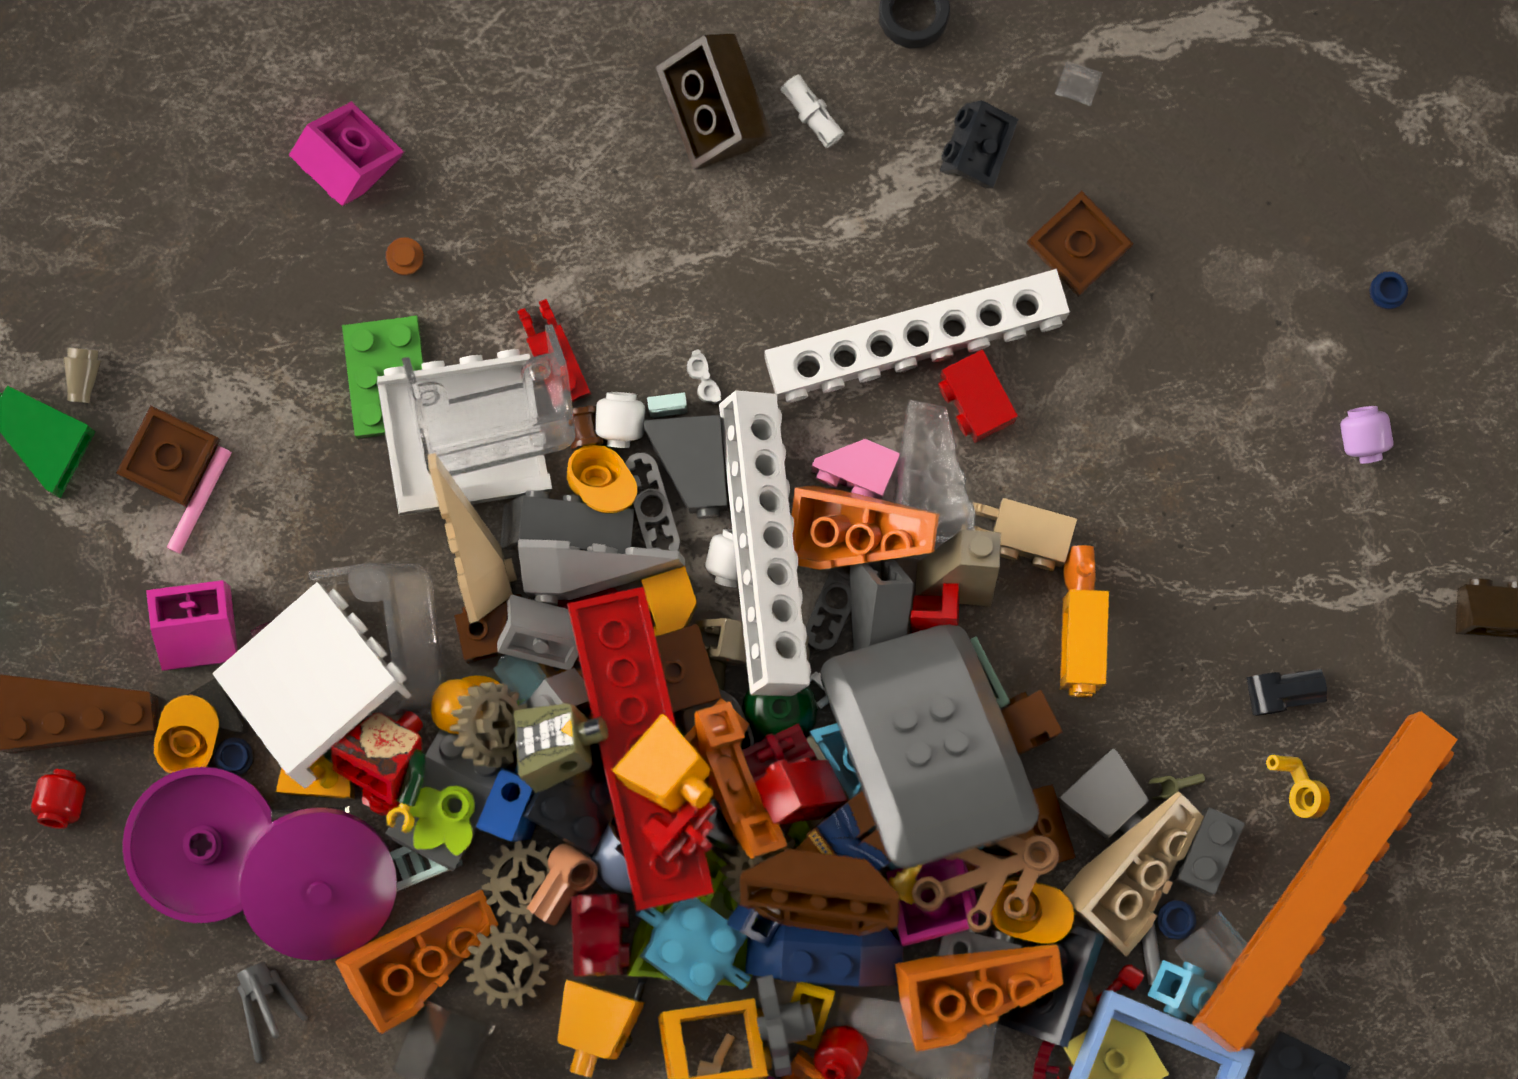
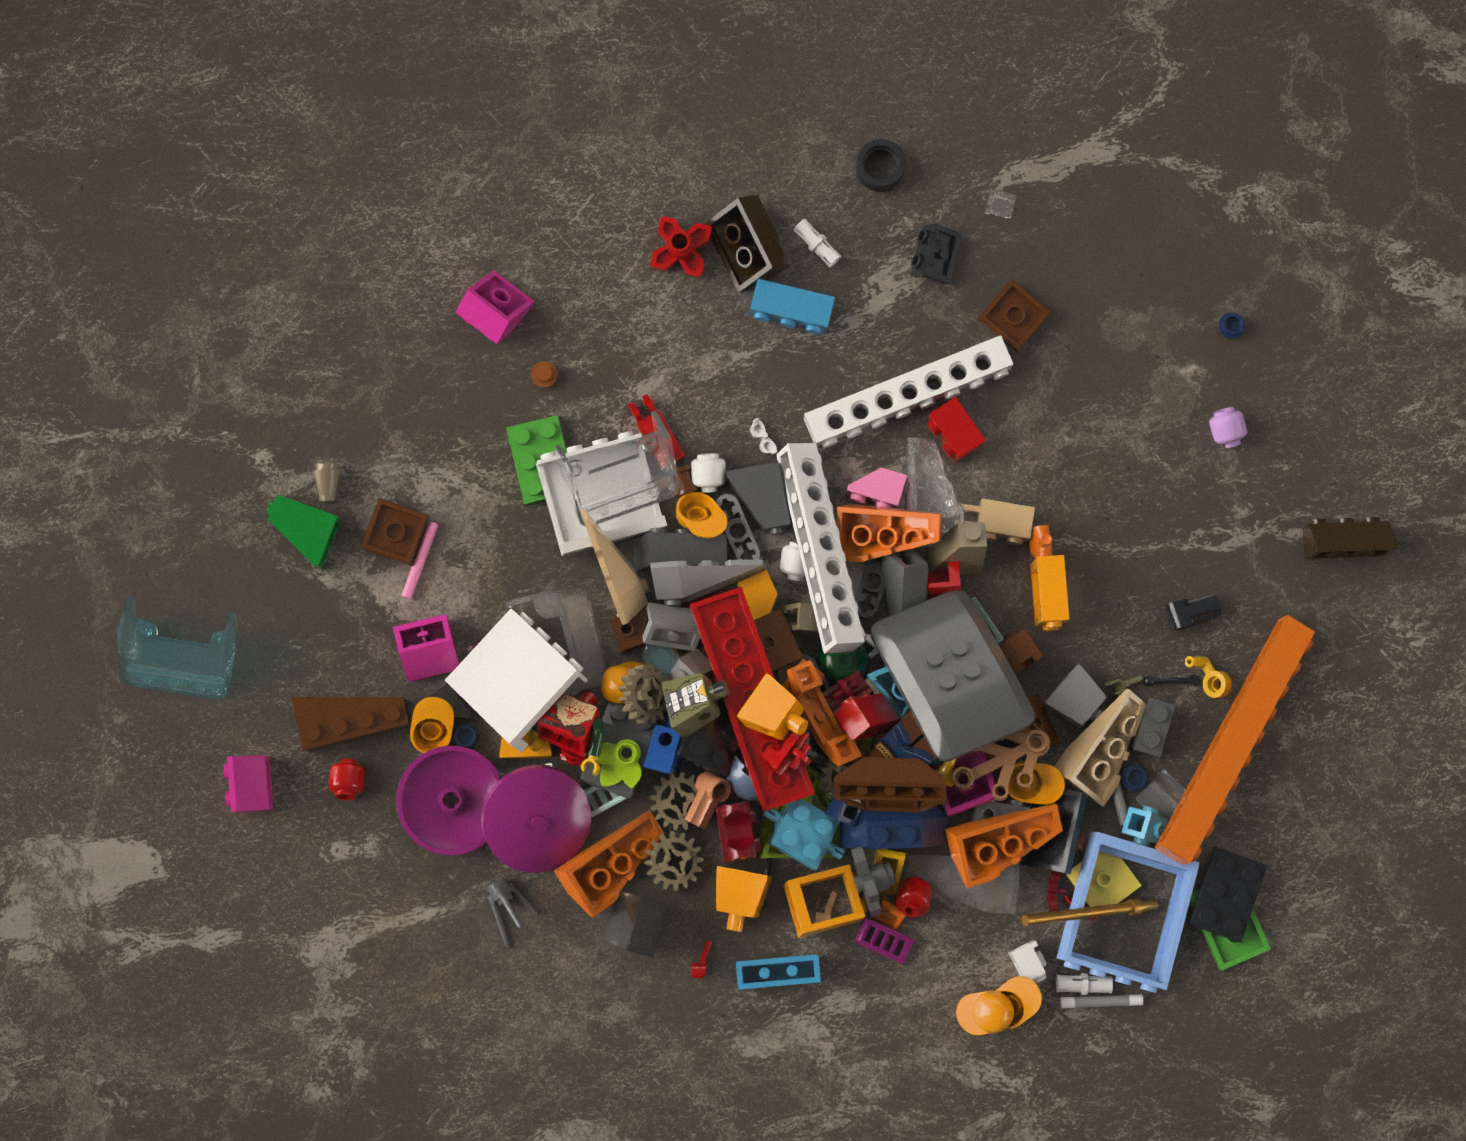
camera: 10 degrees left, 0 degrees up
(637, 88) = (693, 239): none -> red plant
(667, 405) = (740, 459): light aqua tile -> none
(765, 197) = (791, 306): none -> dark azure brick
(1128, 976) = (1105, 820): red hand -> none
(1276, 788) = (1192, 680): none -> black hinge

